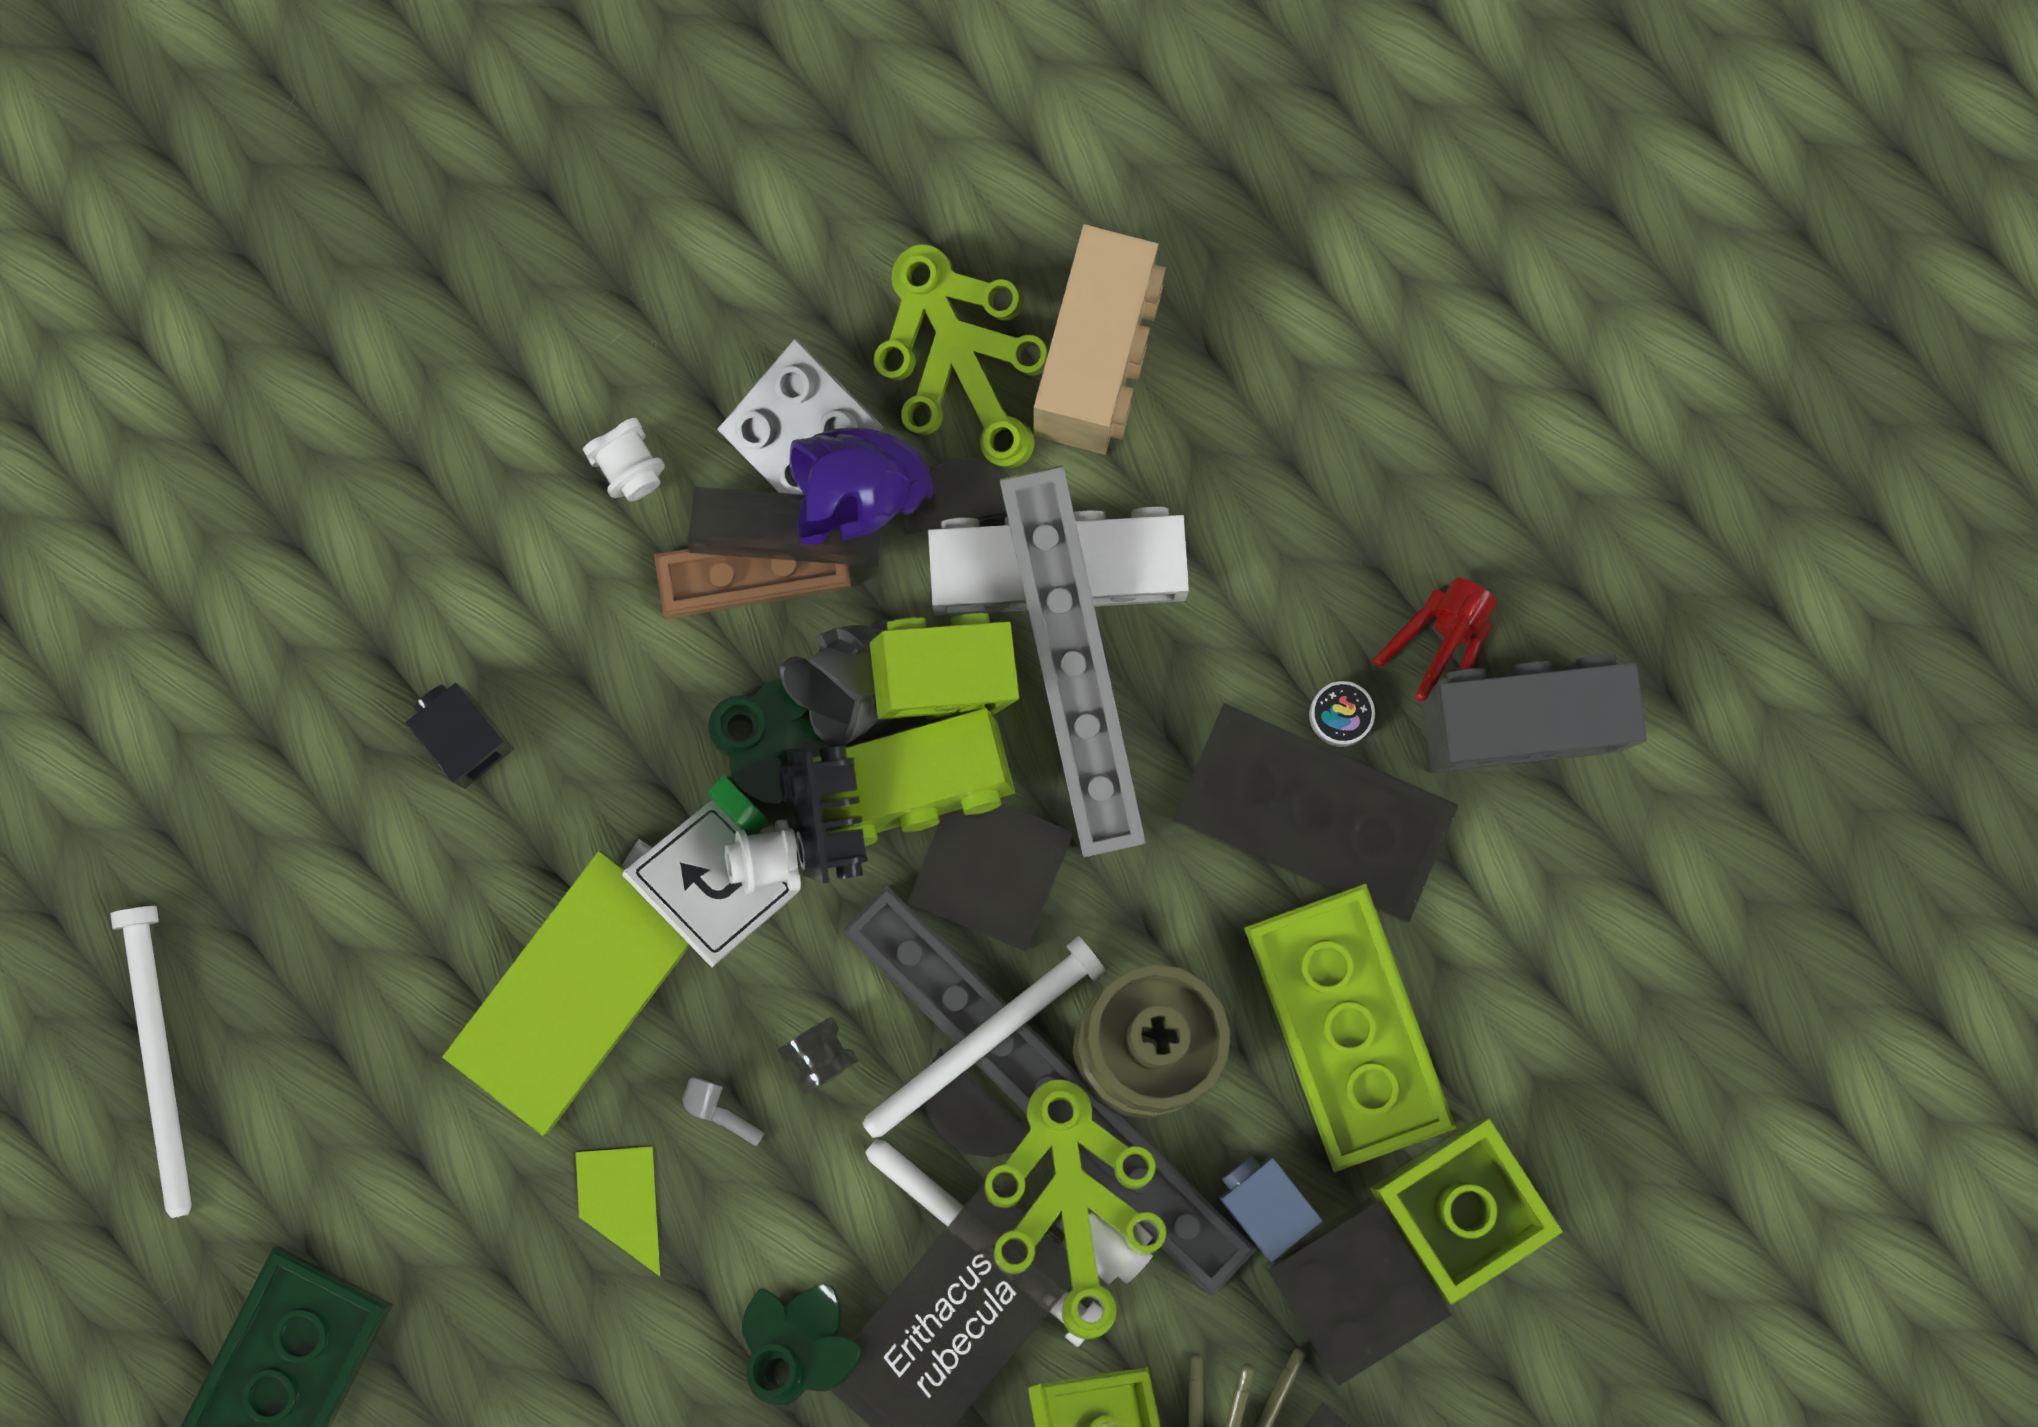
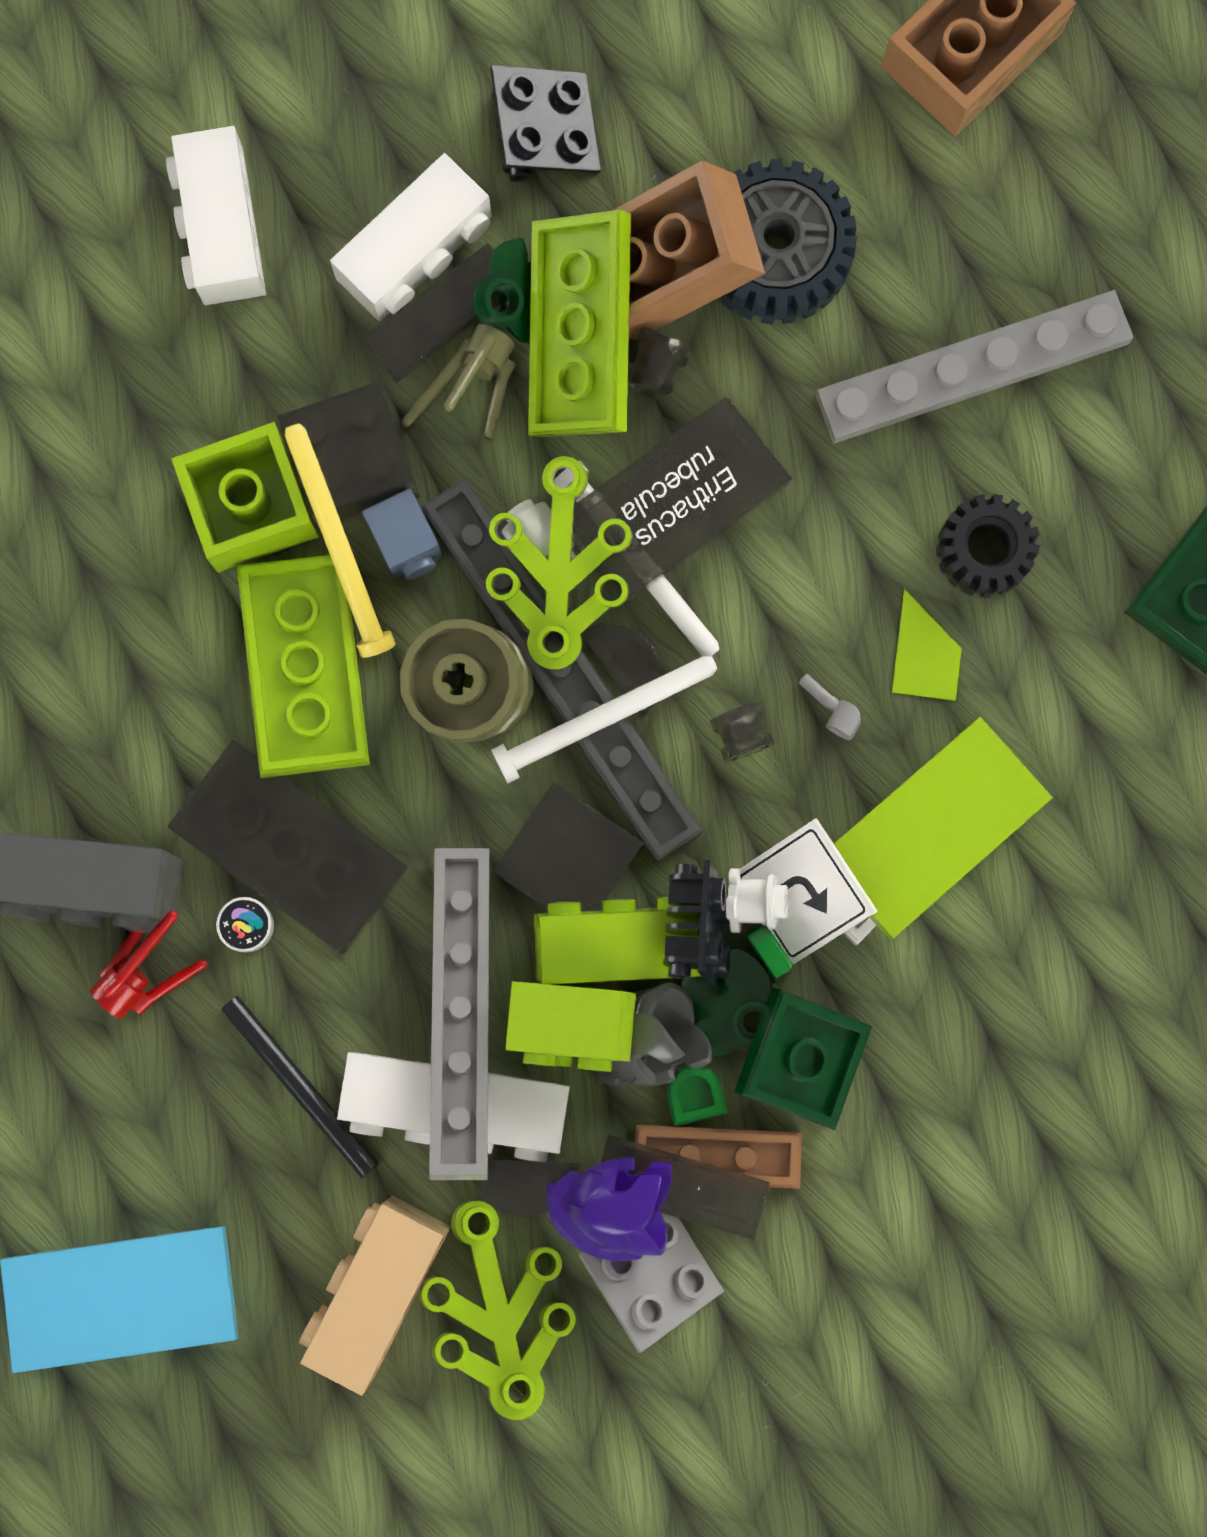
camera: 170 degrees left, 0 degrees up
(458, 733) = (995, 1066): black brick -> none
(529, 1354) = (1006, 520): none -> black tyre
(625, 461) = (809, 1275): white brick -> none
(676, 695) = (803, 1058): none -> dark green tile
(790, 630) = (695, 1095): none -> green tile
(802, 1336) = (796, 513): dark green plate -> none
(1237, 549) = (299, 1086): none -> black bar
(1273, 1073) = (373, 640): none -> light yellow bar
(1377, 282) = (119, 1299): none -> medium azure tile

